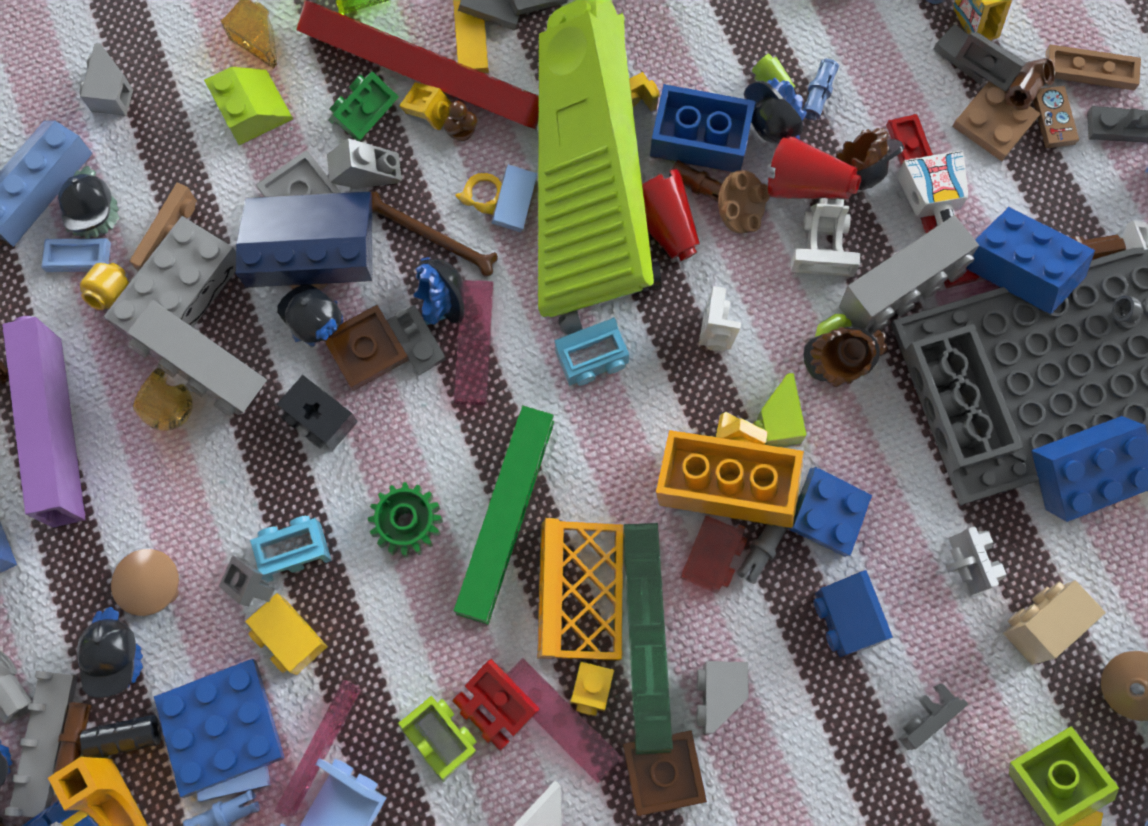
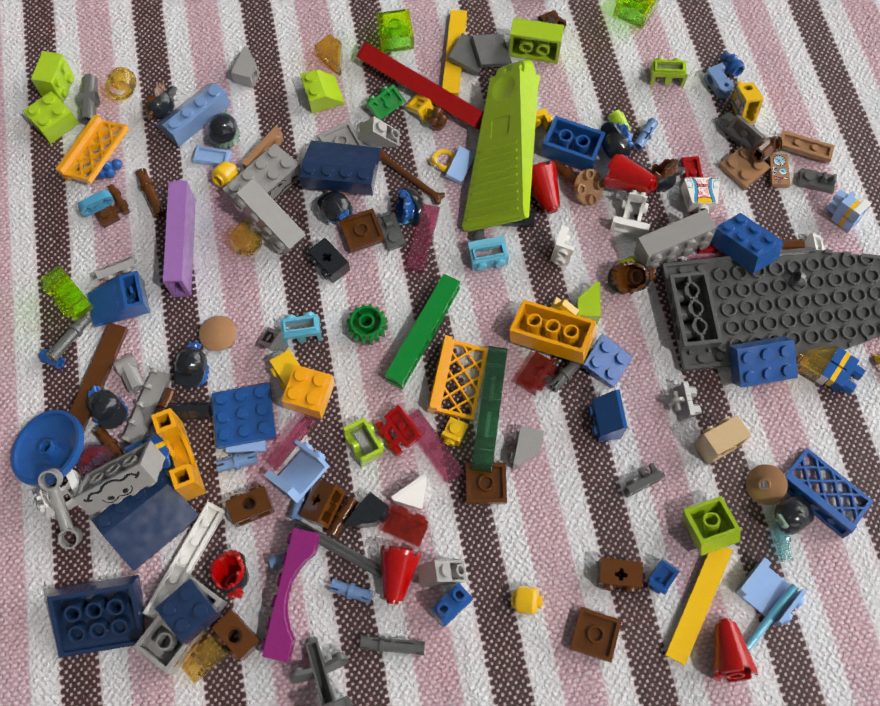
camera: 10 degrees right, 5 degrees down
(324, 671) = (308, 391): none -> light orange brick

